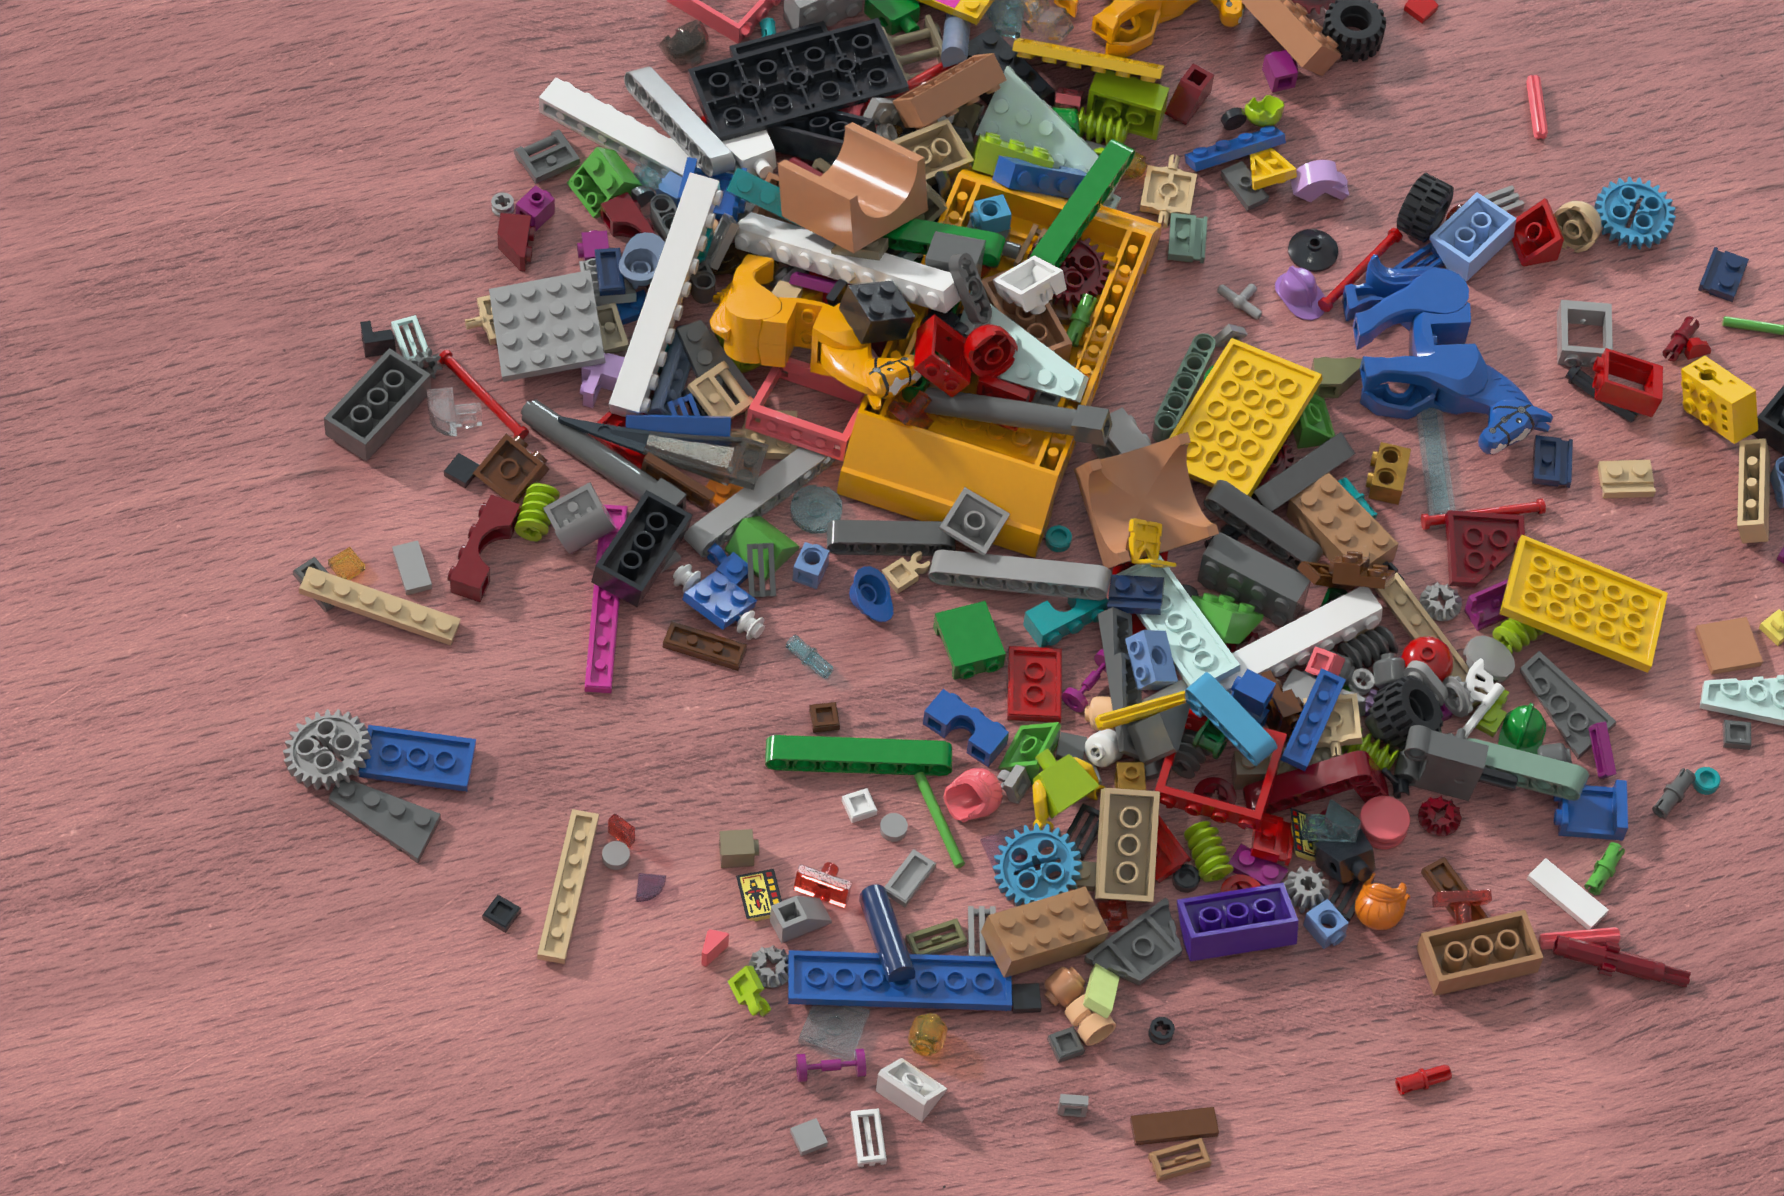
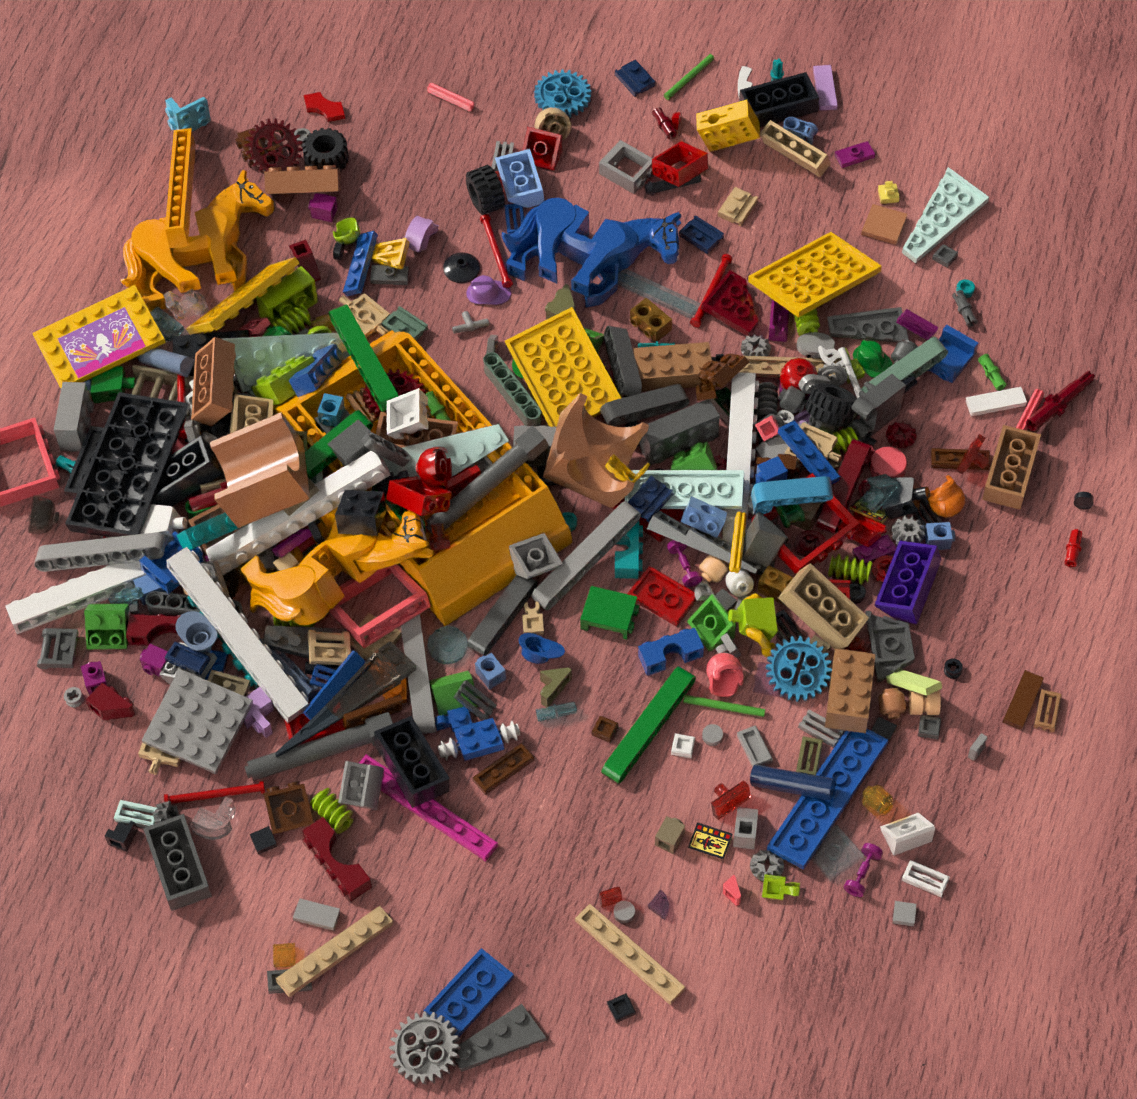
camera: 50 degrees left, 0 degrees up
(845, 638) = (555, 682): none -> olive slope
(1069, 720) = (703, 591): none -> light grey tile
(1497, 1057) = (1083, 500): none -> black tile

